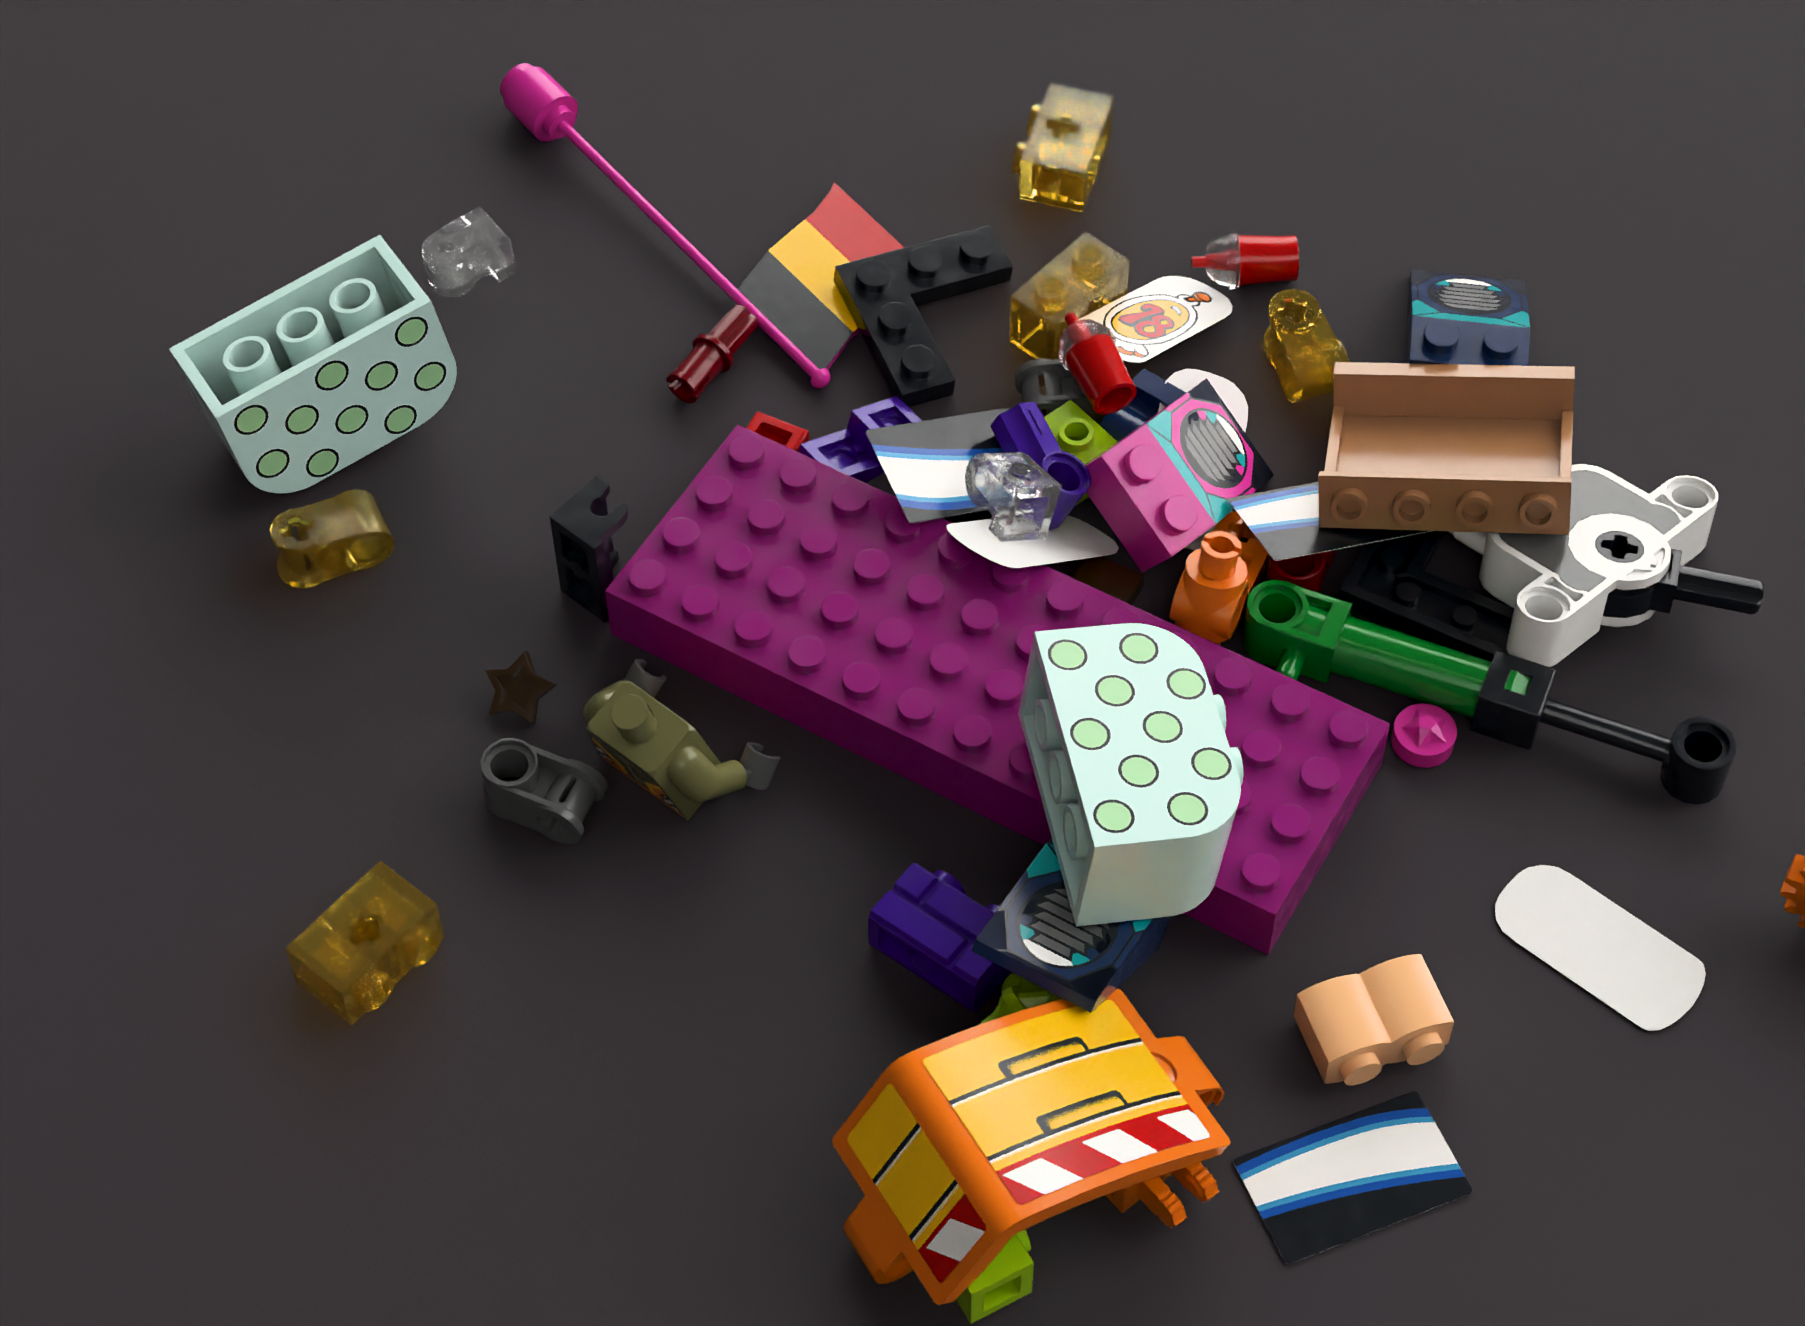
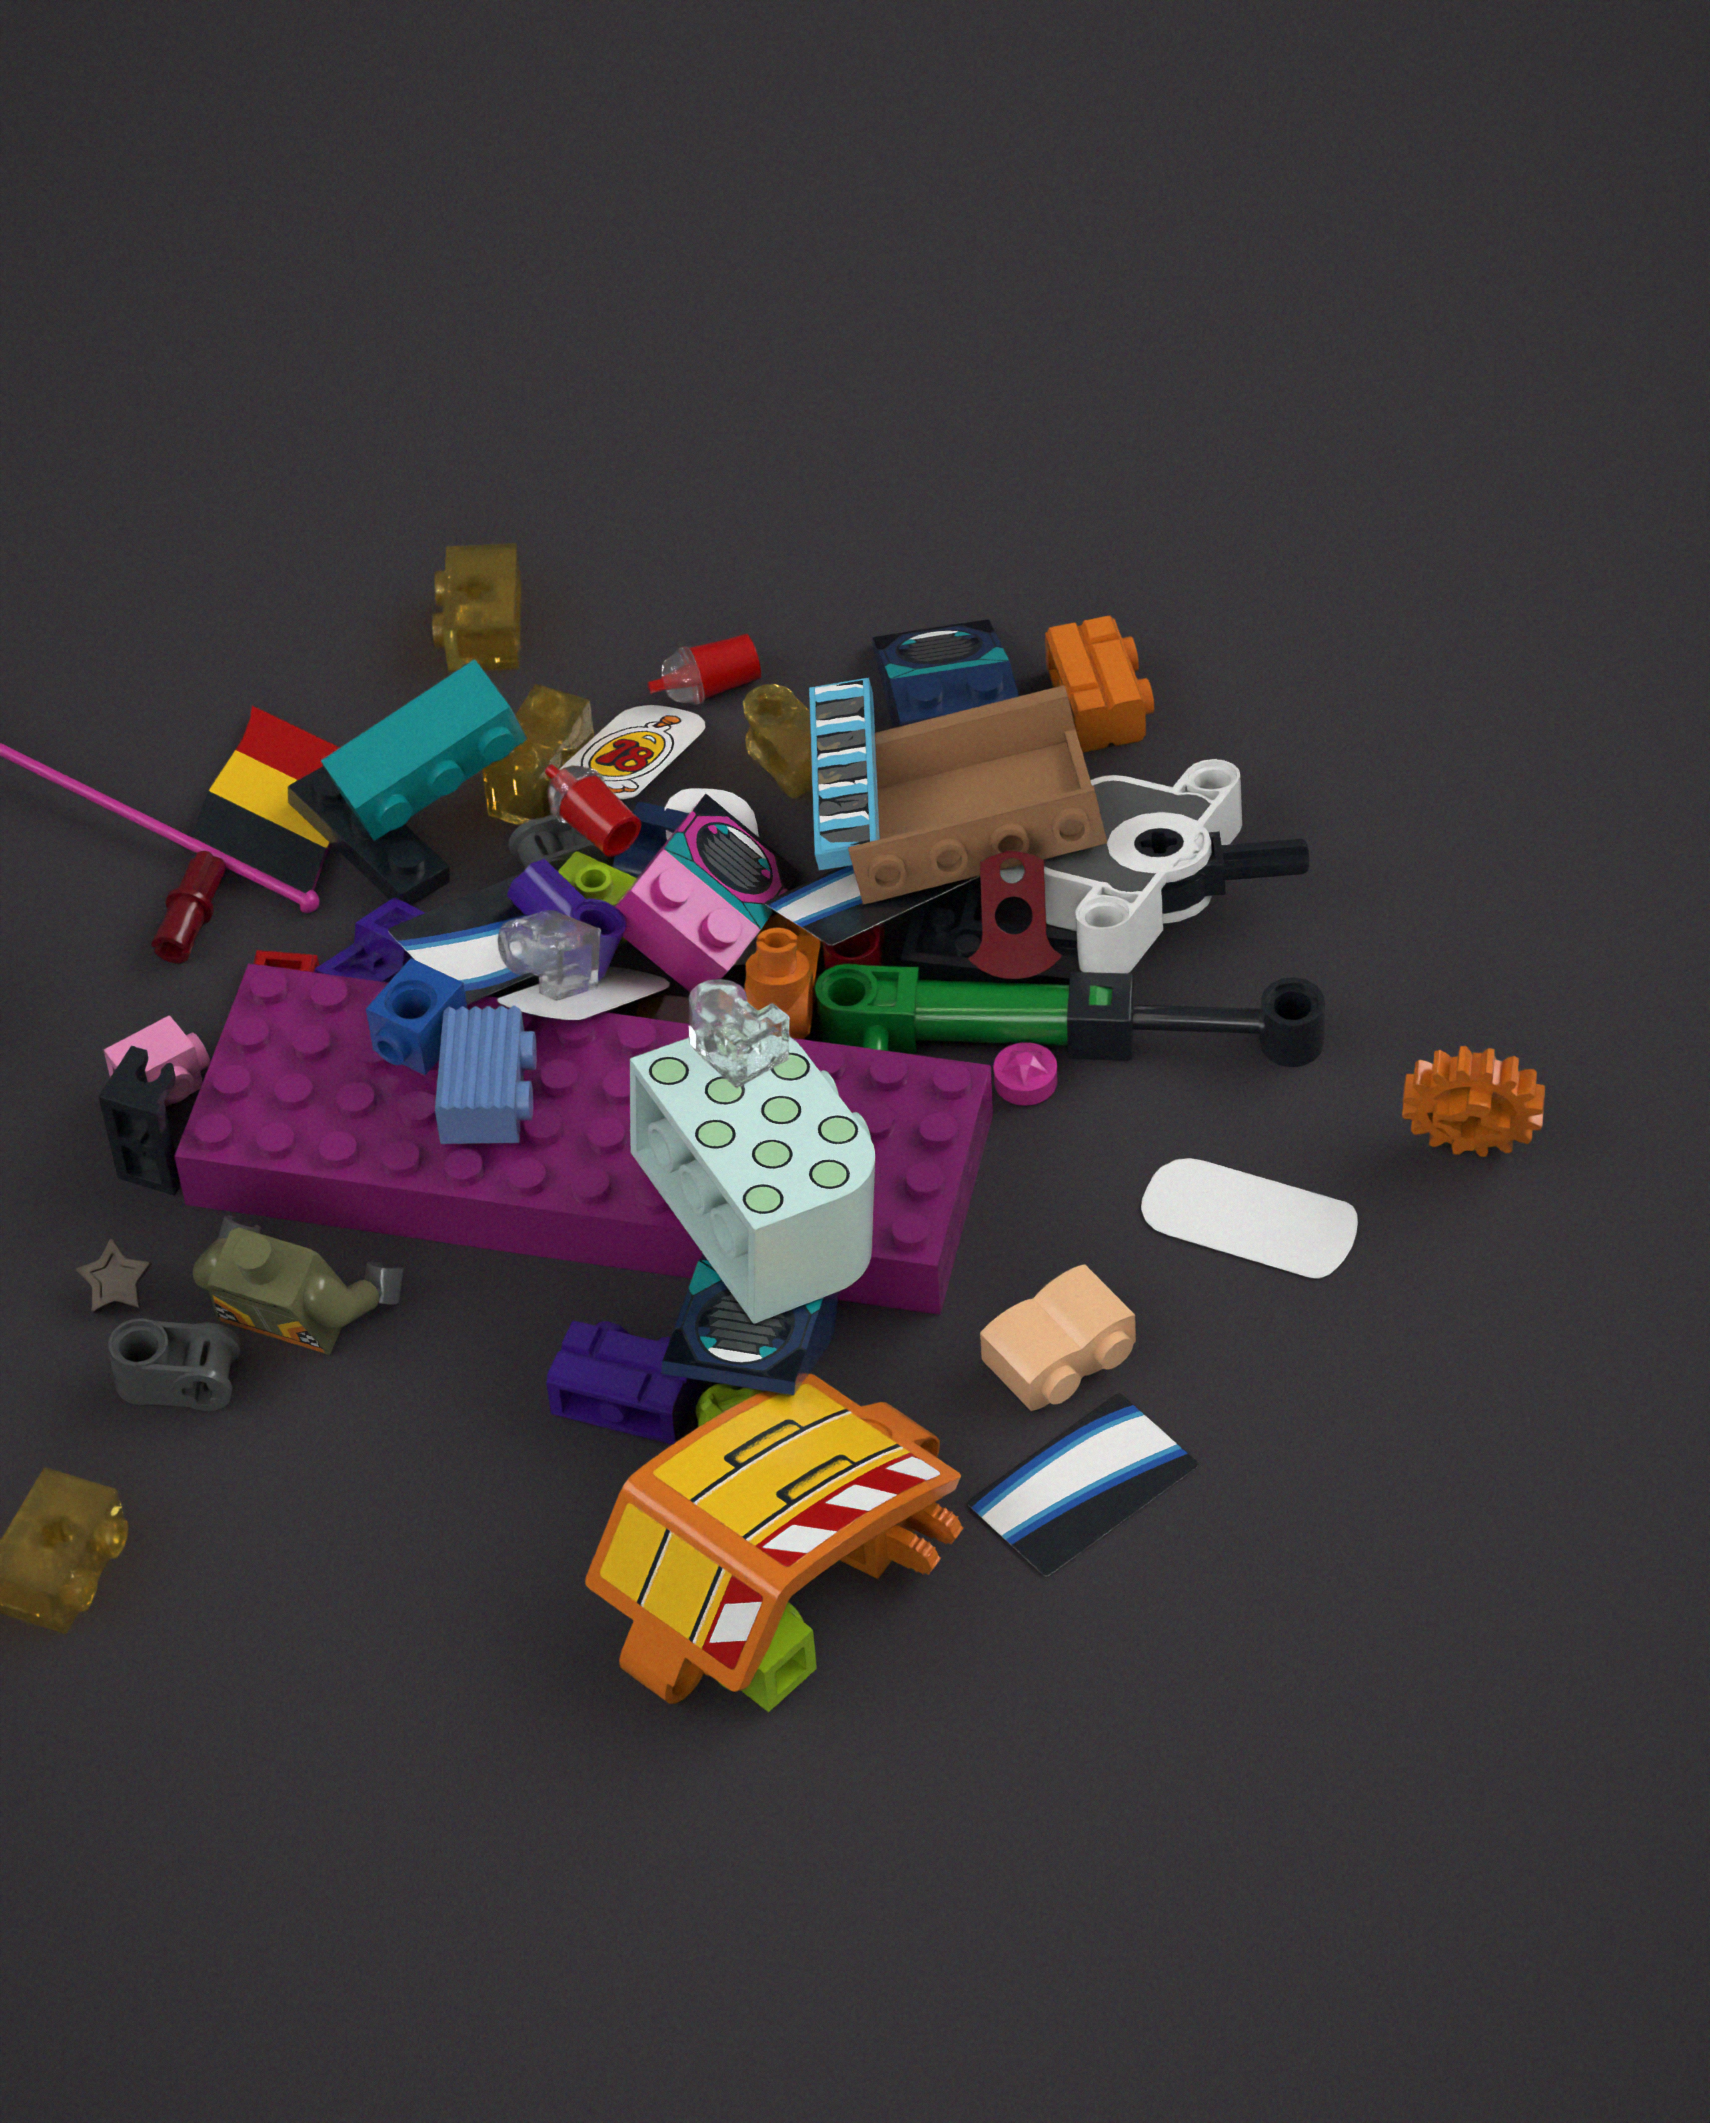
camera: 15 degrees left, 5 degrees down
(640, 487) = (165, 1045): none -> bright pink brick
(864, 523) = (409, 1015): none -> blue brick
(905, 598) = (482, 1075): none -> medium blue brick
(961, 267) = (424, 750): none -> teal brick
(1140, 639) = (734, 1034): none -> clear leg
(1340, 392) = (843, 770): none -> tile
(1448, 618) = (1021, 953): none -> dark red piece
(1610, 370) = (1099, 682): none -> orange brick

